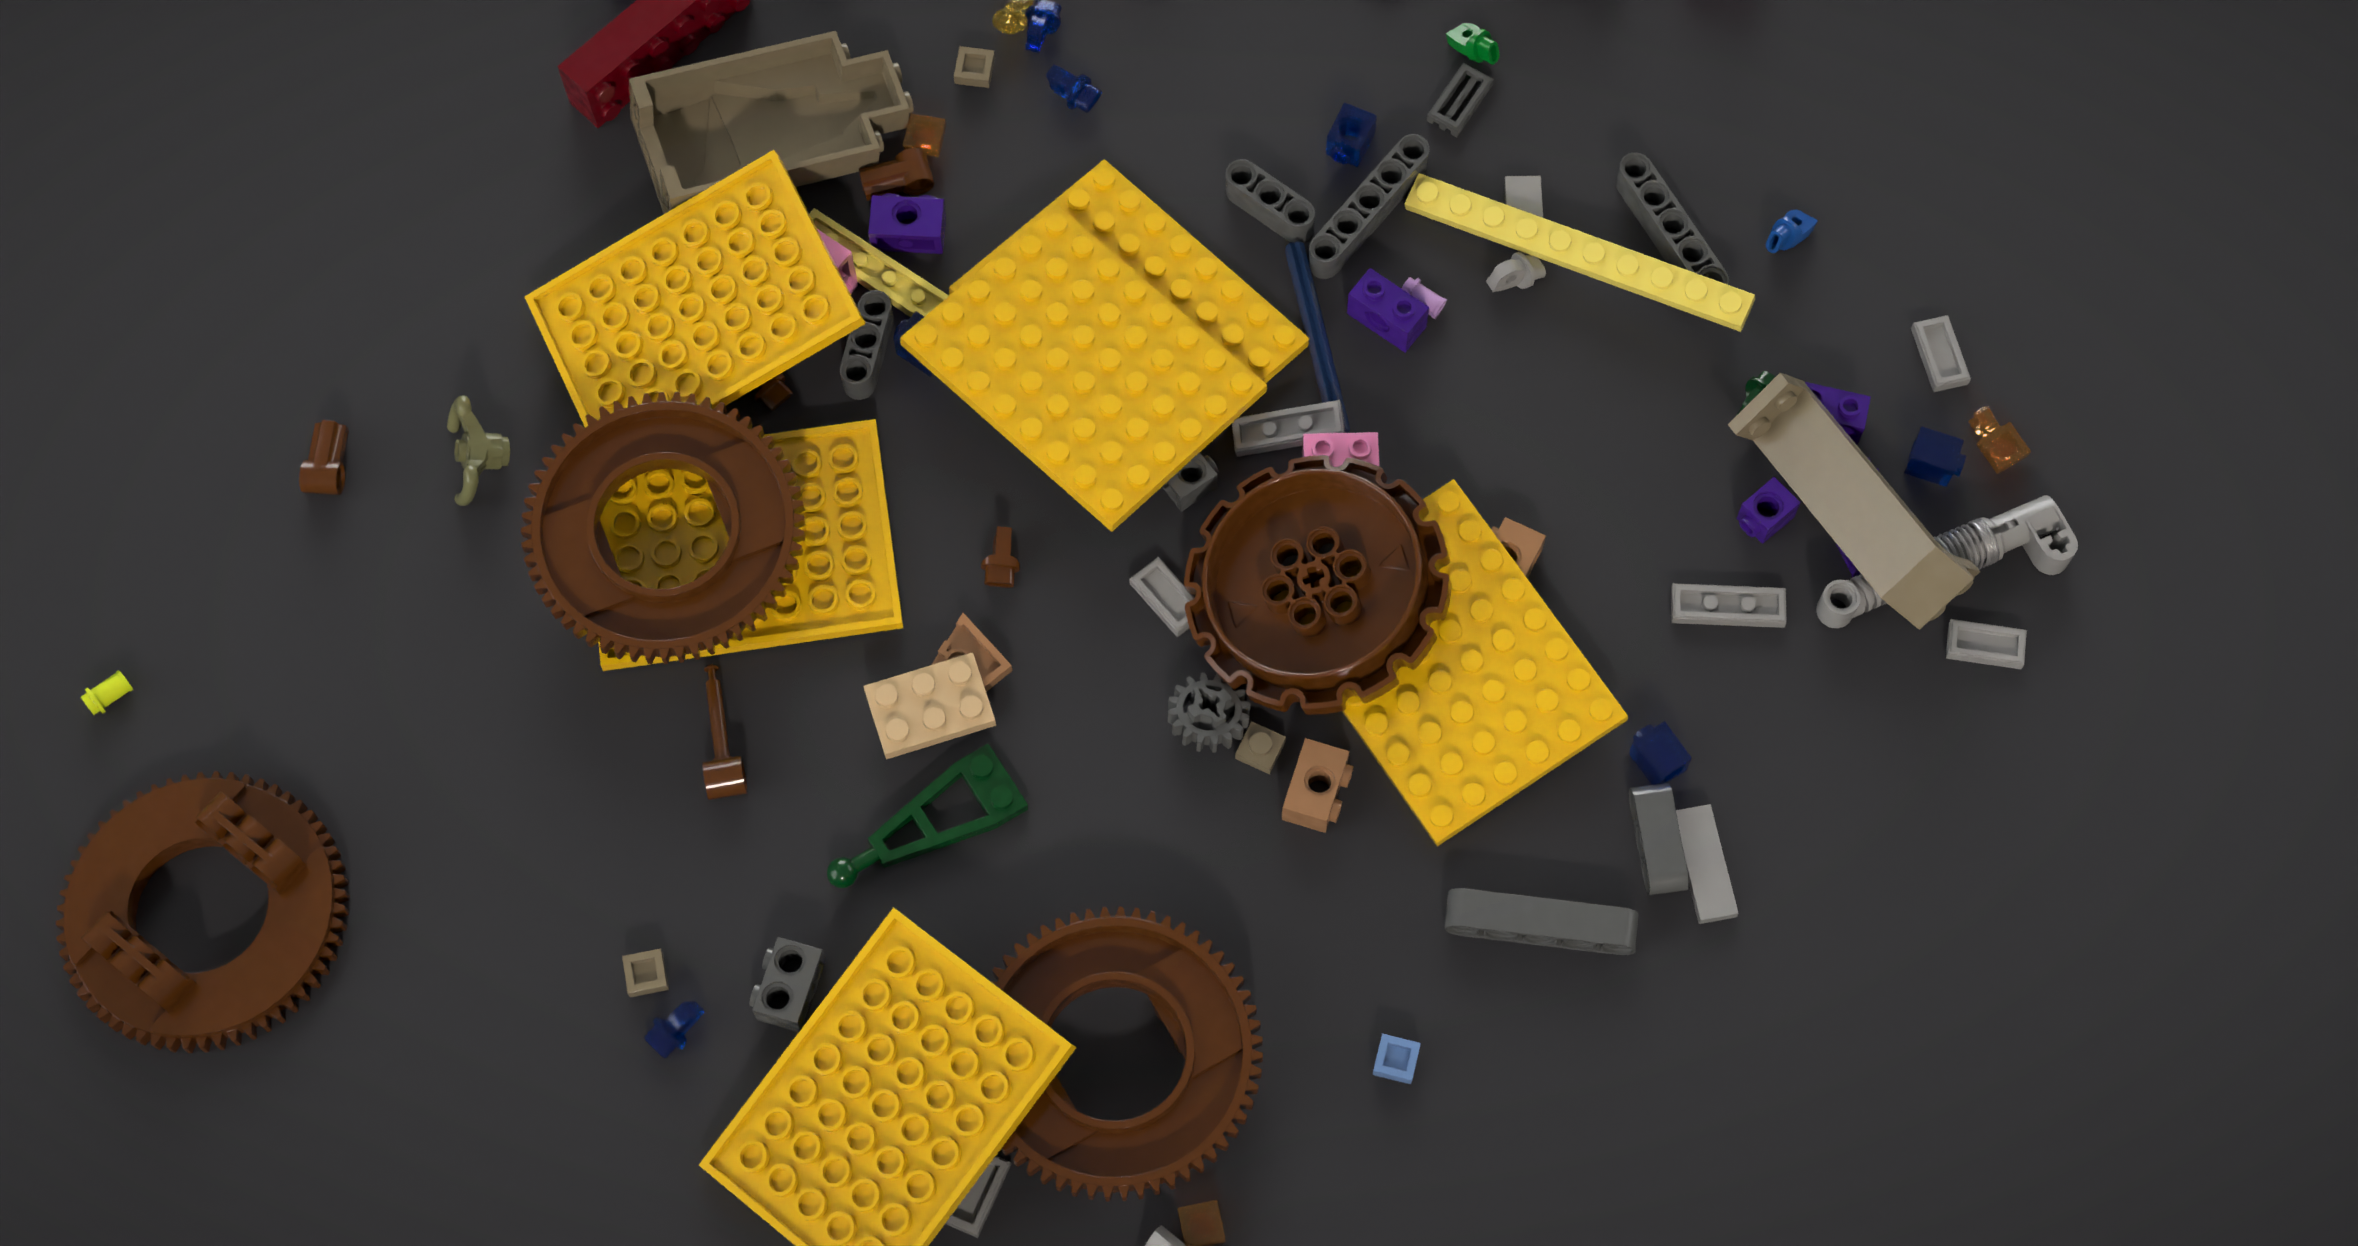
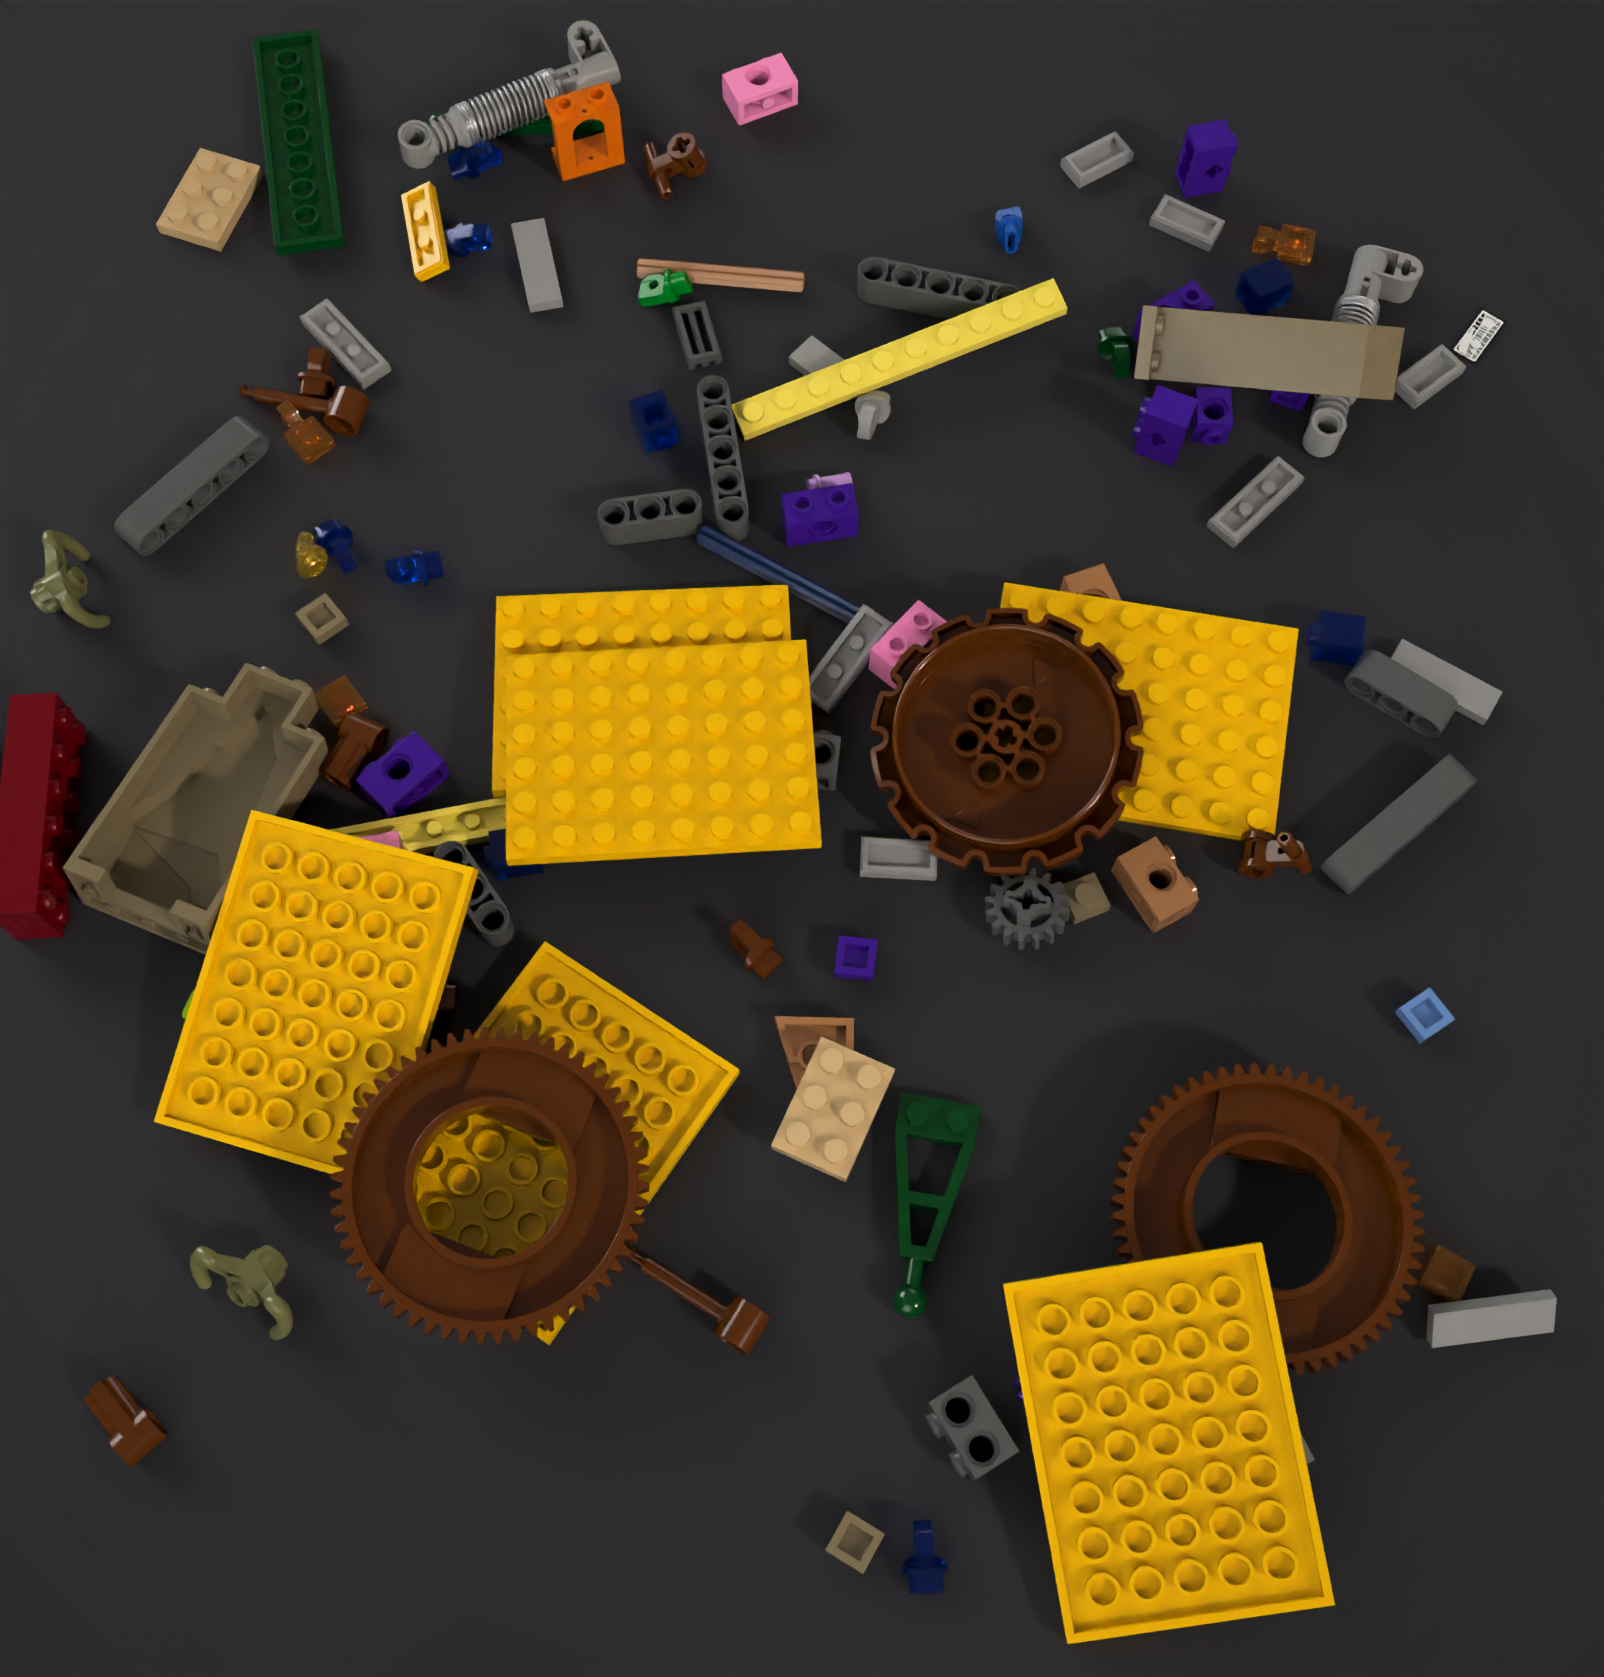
camera: 50 degrees left, 0 degrees up
(1059, 630) = (855, 958): none -> dark purple plate
(1420, 843) = (1265, 853): none -> reddish brown piece
(1531, 73) = (726, 274): none -> medium nougat axle
(1713, 481) = (1163, 425): none -> dark purple brick
(1929, 240) = (1097, 159): none -> light grey tile
(2004, 315) = (1205, 158): none -> dark purple brick
(2071, 654) = (1478, 336): none -> sticker

